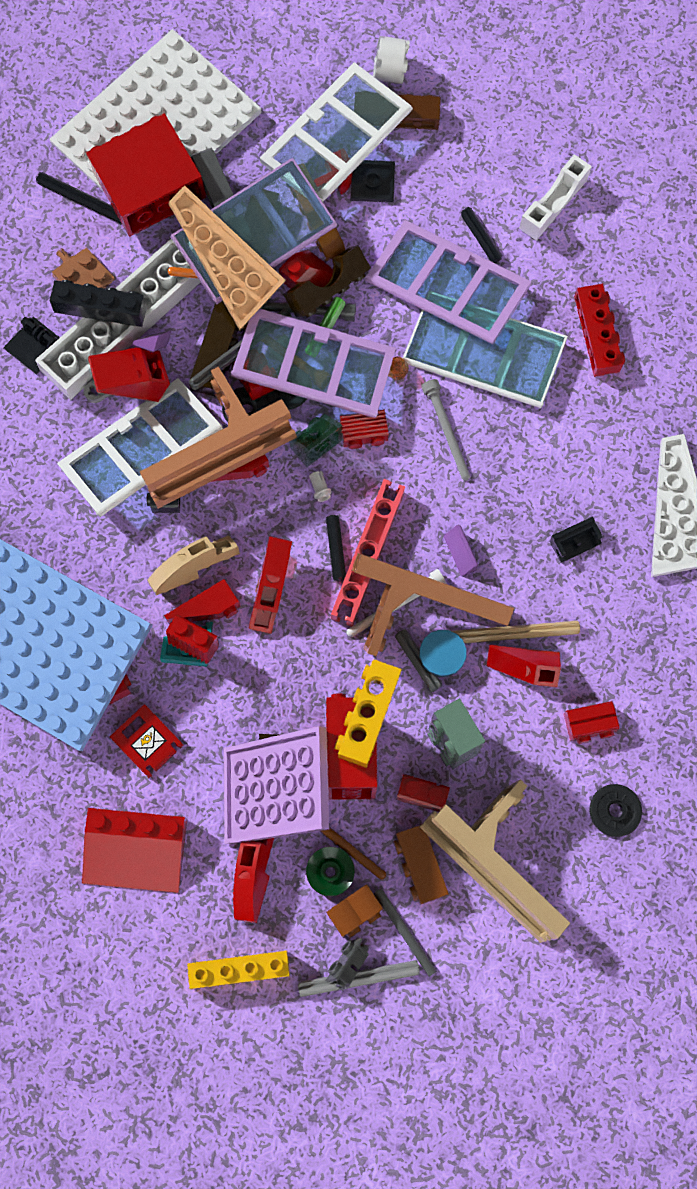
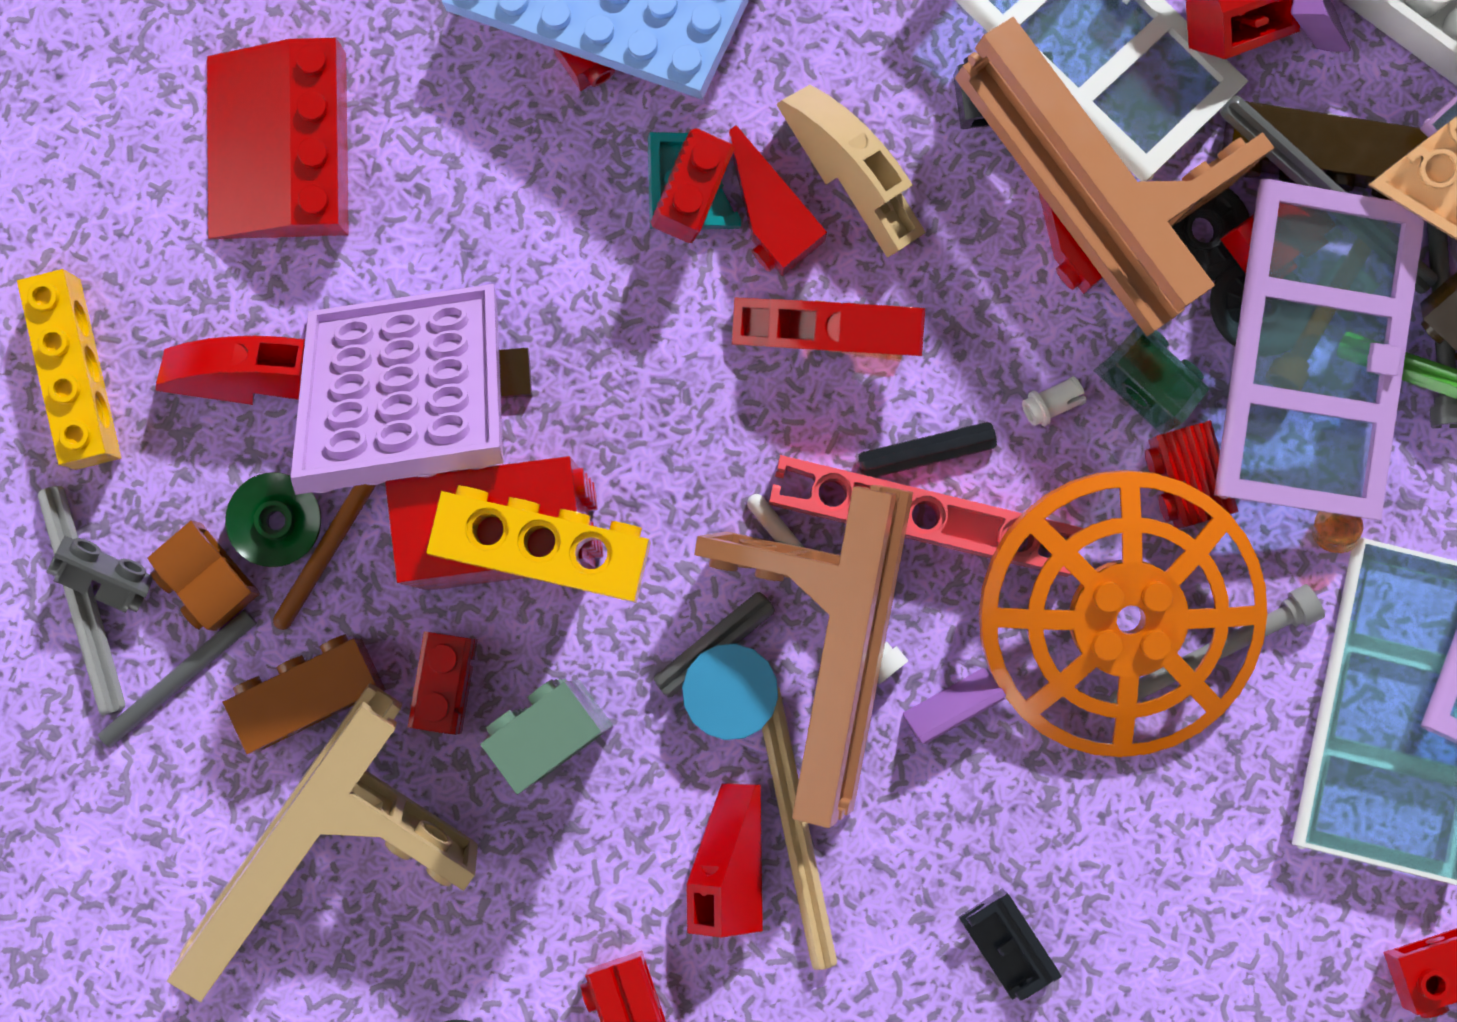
camera: 85 degrees right, 10 degrees up
(149, 743) = (482, 139): container -> none
(419, 474) = (1101, 598): none -> orange dish

